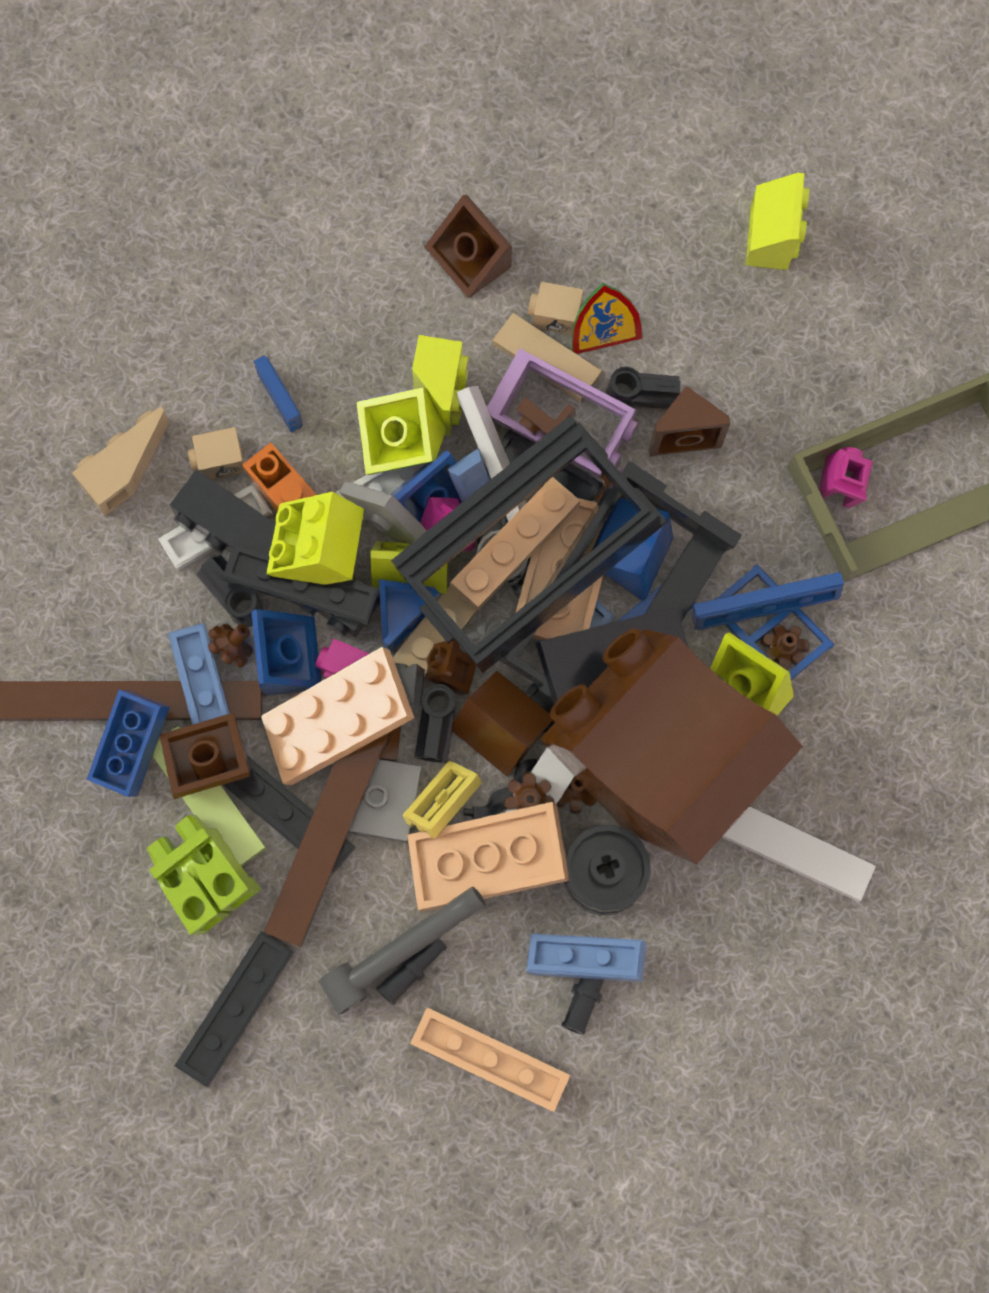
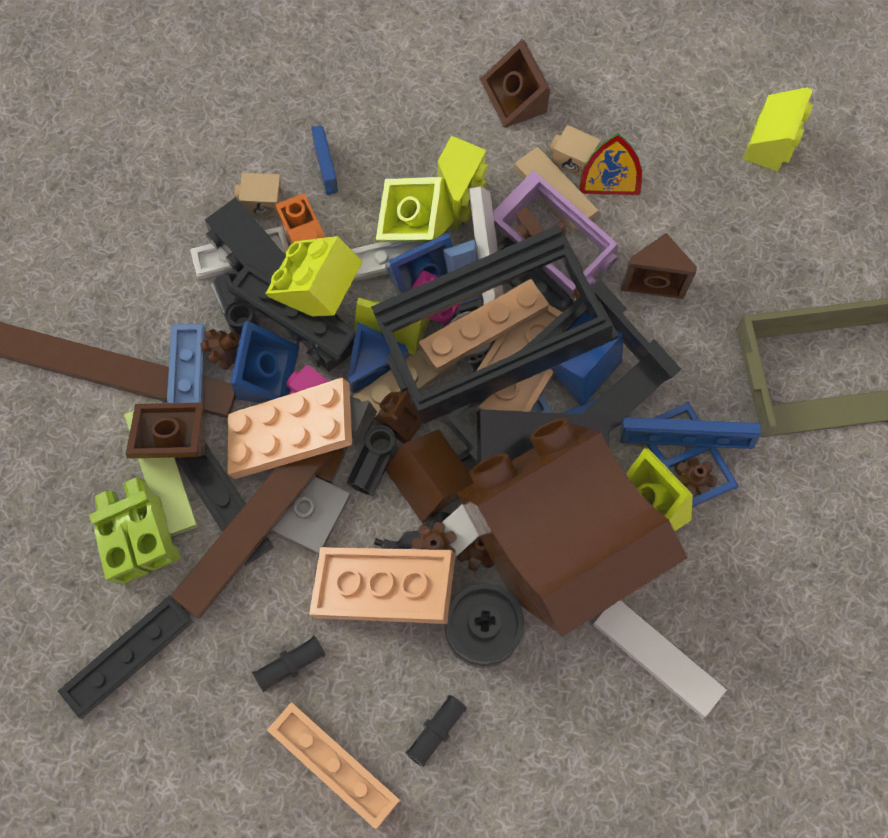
camera: 15 degrees right, 5 degrees down
(118, 468) = (181, 181): tan slope -> none
(128, 743) = (108, 405): blue piece -> none
(348, 984) = (228, 662): dark grey piece -> none
(384, 512) = (379, 270): light grey plate -> none
(447, 800) = (362, 526): light yellow tile -> none
(586, 957) = (445, 698): medium blue tile -> none
(646, 388) = (631, 233): black piece -> none
(834, 478) = (774, 346): dark pink window -> none

